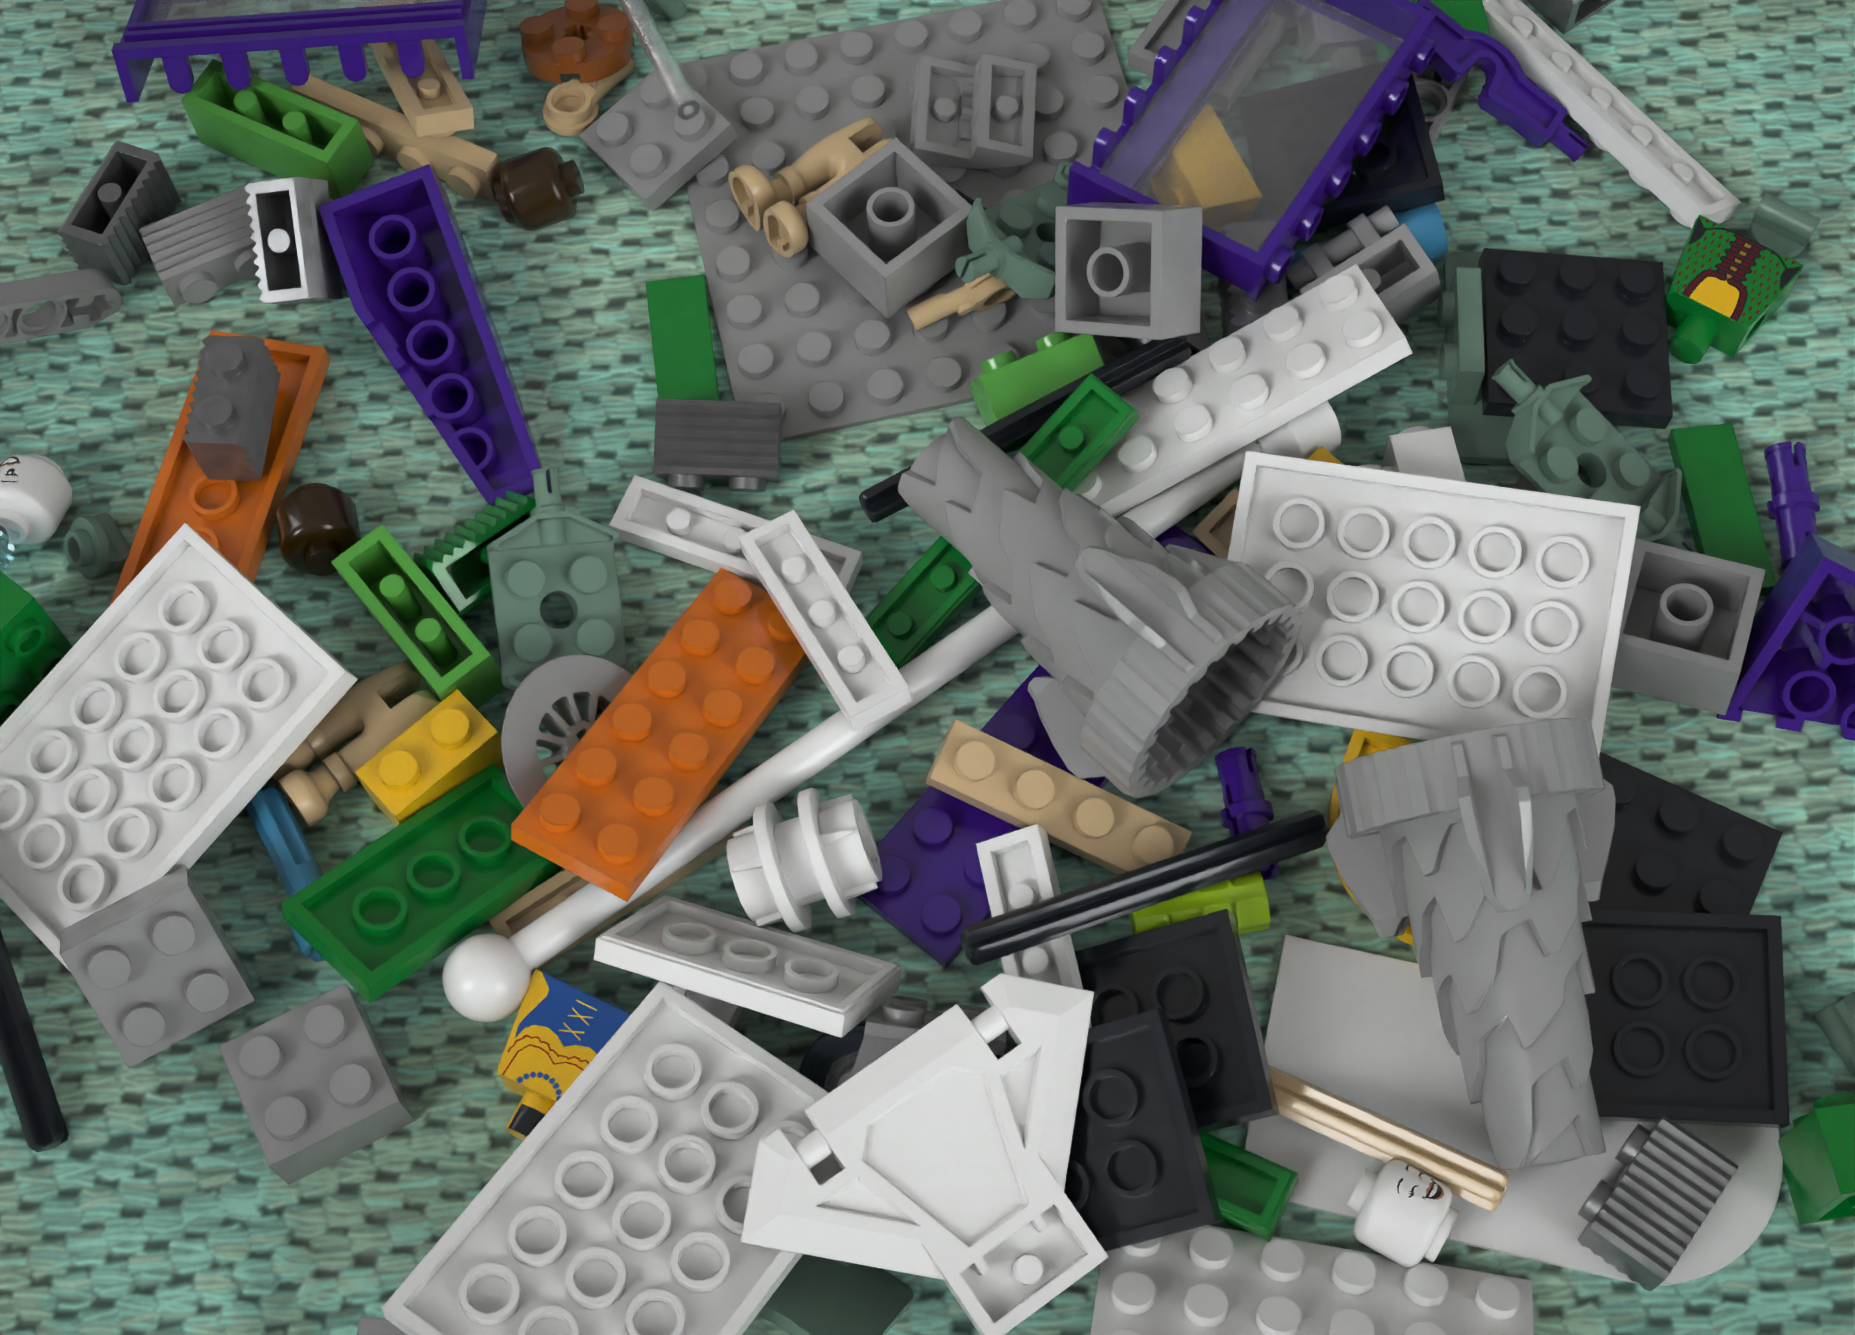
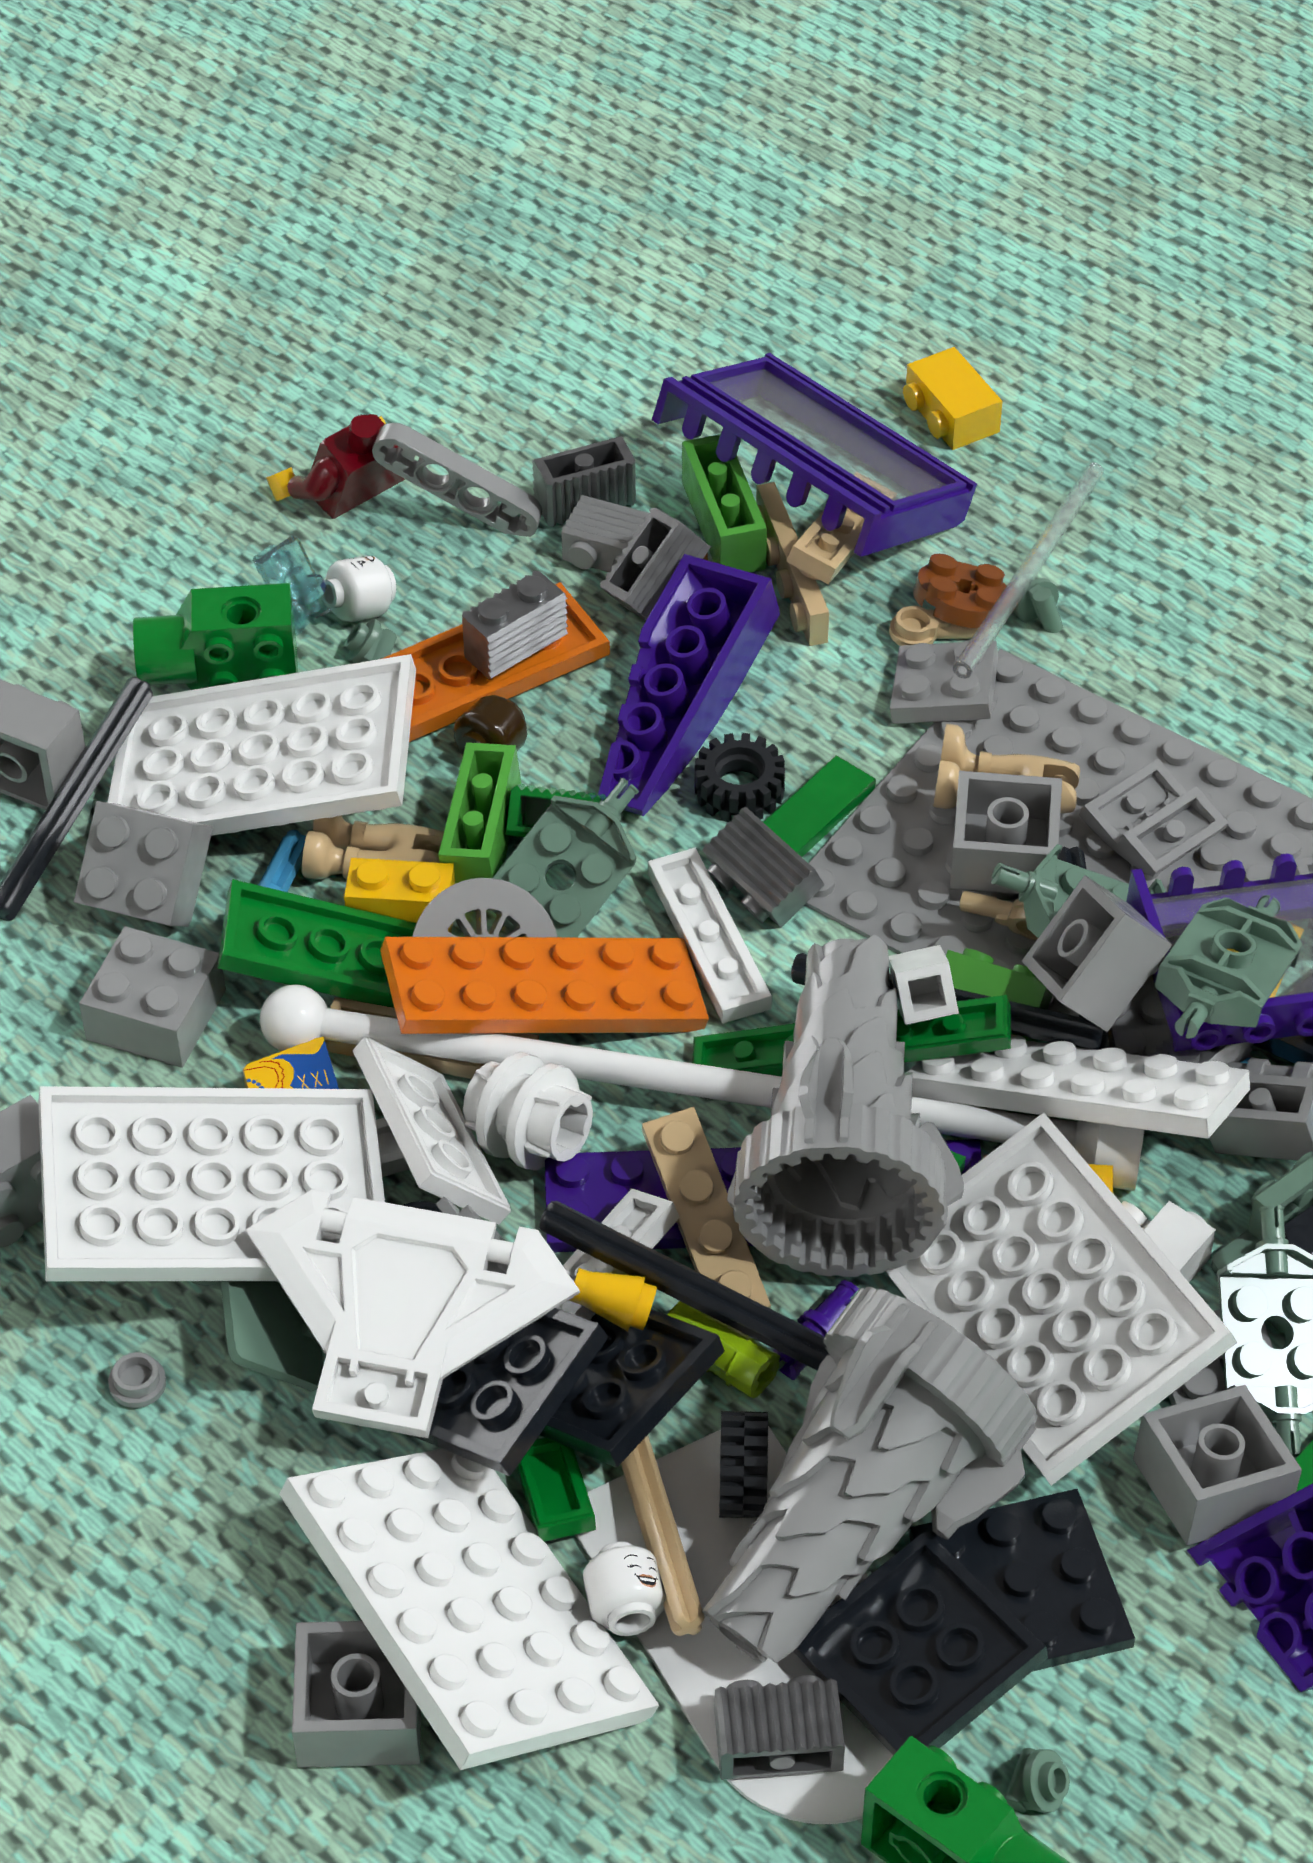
camera: 45 degrees right, 15 degrees down
(538, 189) = (836, 654): dark brown head -> none
(586, 346) = (739, 756): none -> black tyre
(825, 620) = (692, 999): white plate -> none
(1027, 421) = (923, 984): none -> white brick
(1109, 958) = (615, 1297): none -> yellow cone
(1251, 211) = (1223, 984): none -> sand green plate
(1368, 1001) = (743, 1464): none -> black tyre

